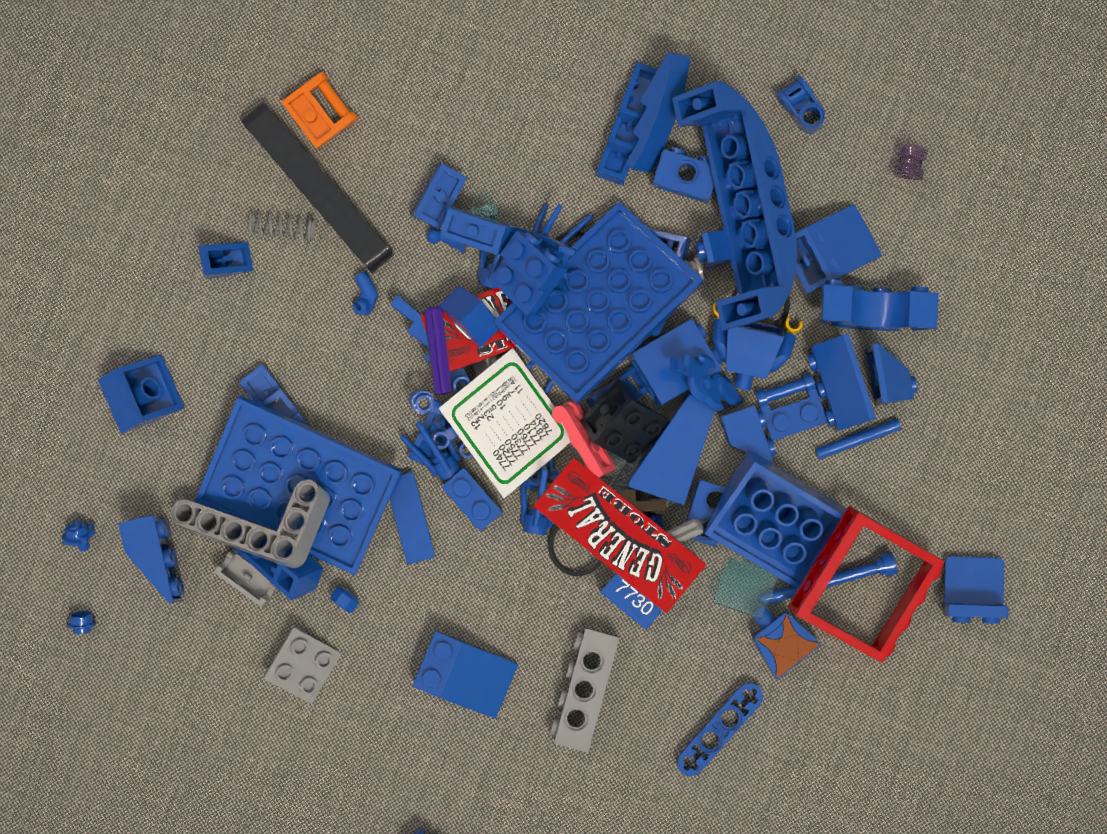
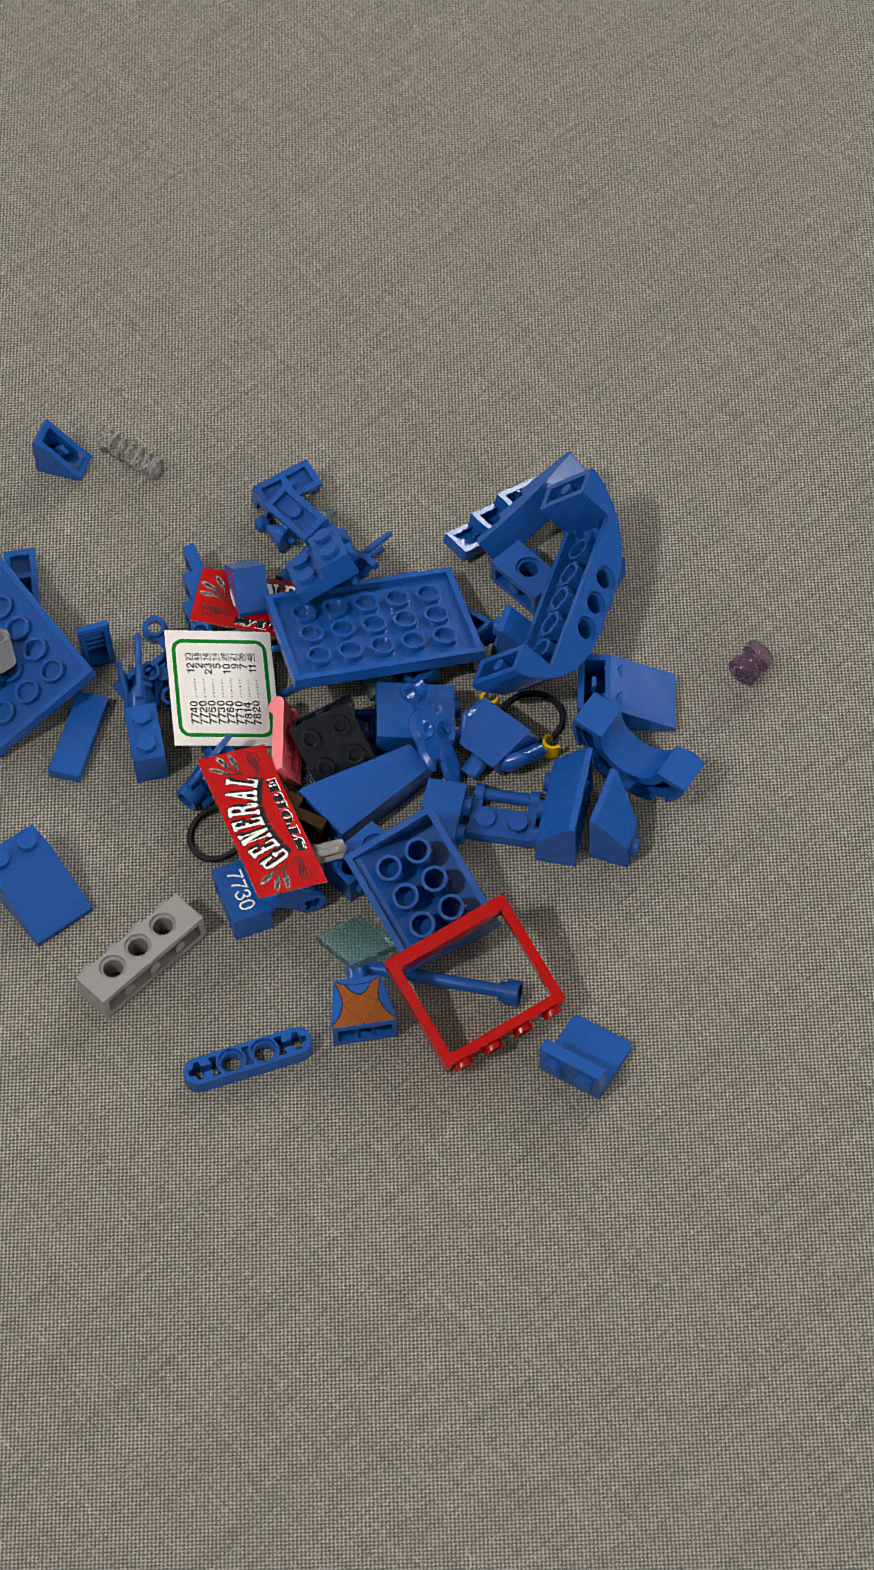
camera: 30 degrees right, 30 degrees down
(310, 114) = (217, 384): orange plate -> none
(317, 187) = (183, 439): black beam -> none
(367, 296) = (162, 547): blue arm -> none
(374, 432) = (96, 643): none -> blue slope
(438, 351) = (199, 595): dark purple axle -> none
(801, 103) = (674, 574): blue piece -> none
(858, 439) = (552, 873): blue bar -> none

